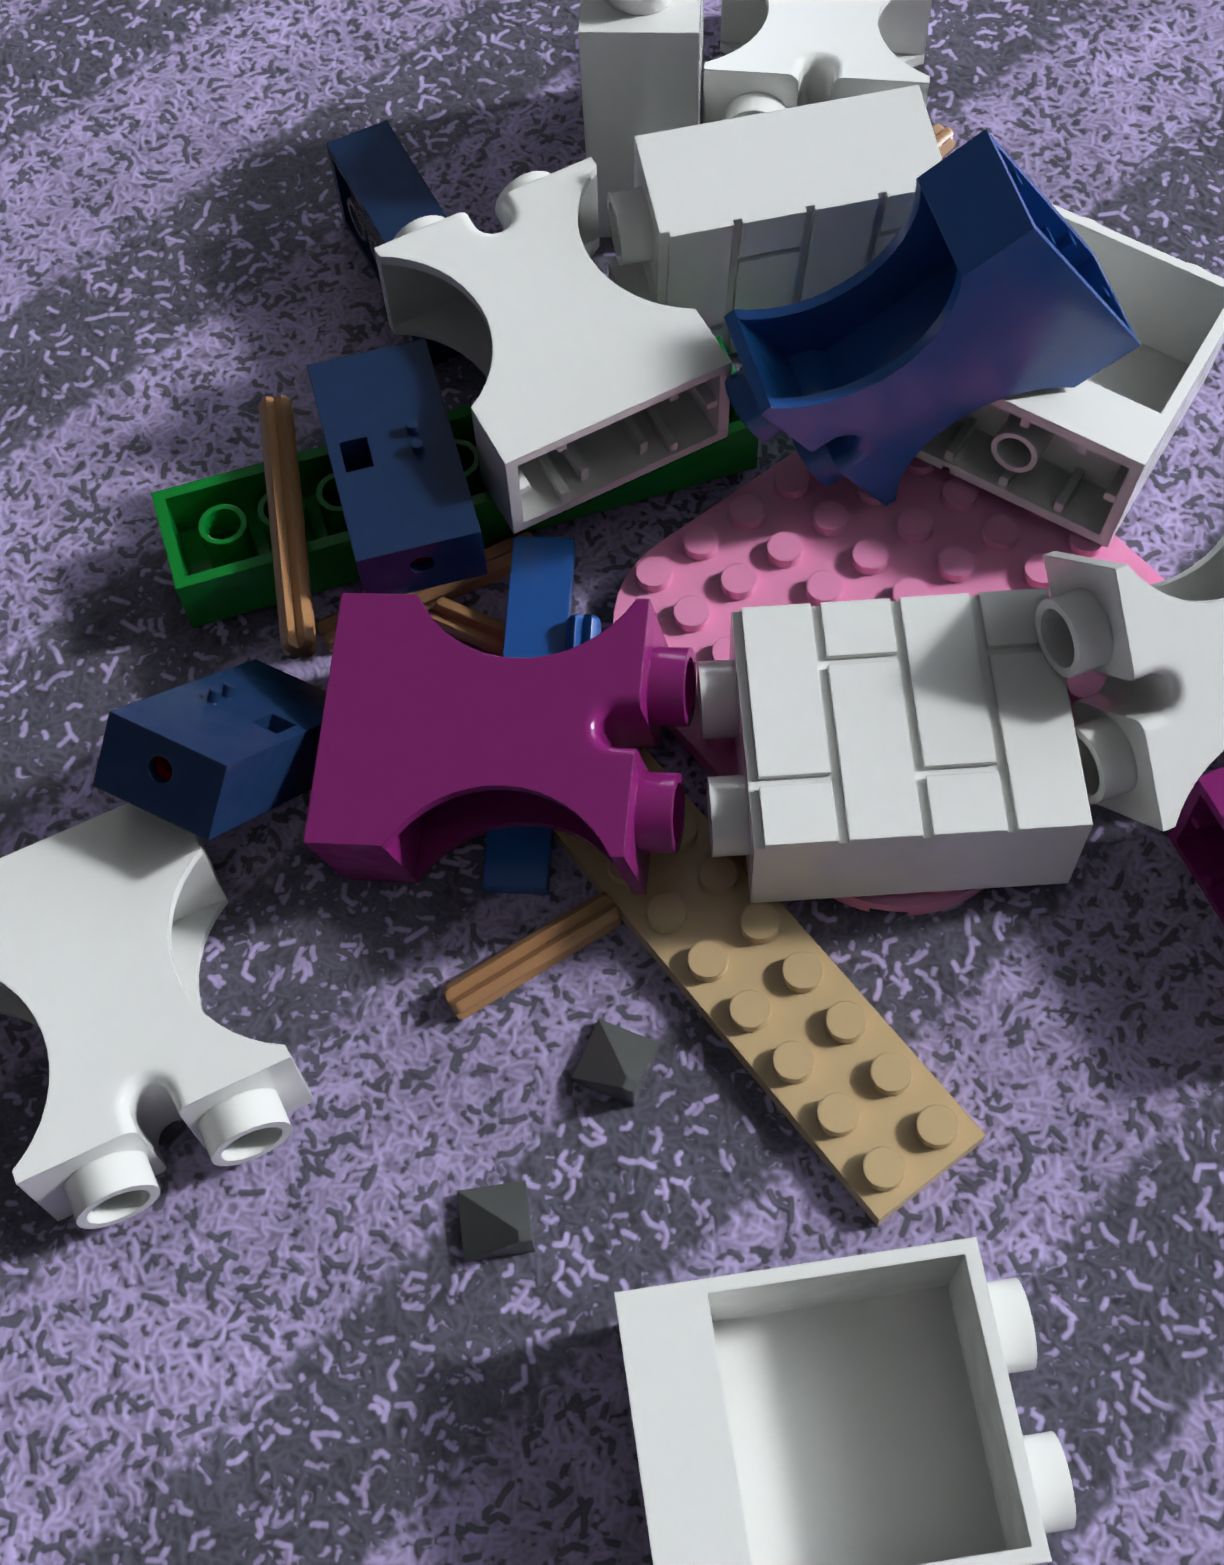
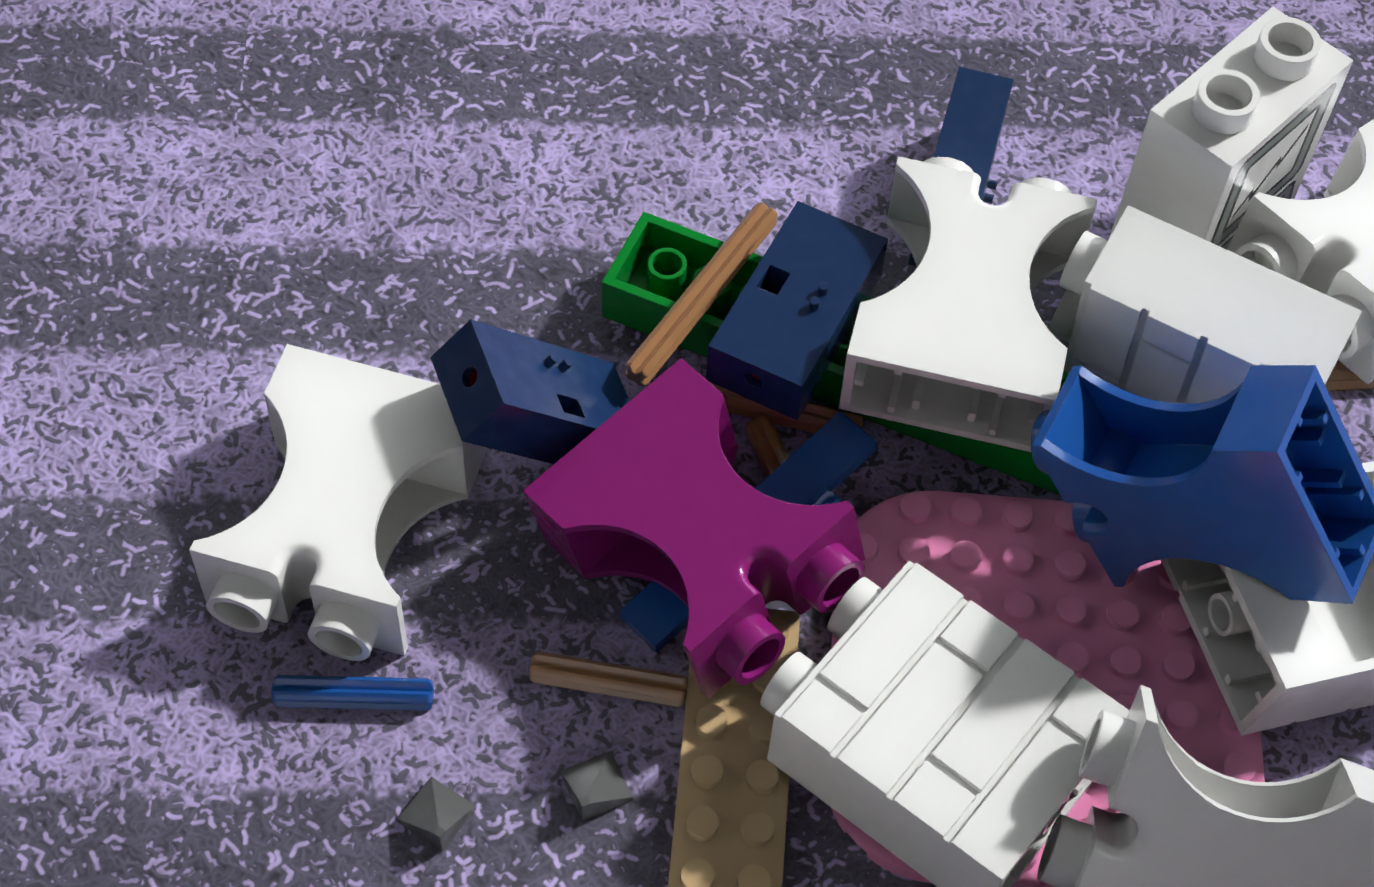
camera: 35 degrees right, 5 degrees down
(300, 1180) = (352, 692): none -> blue axle

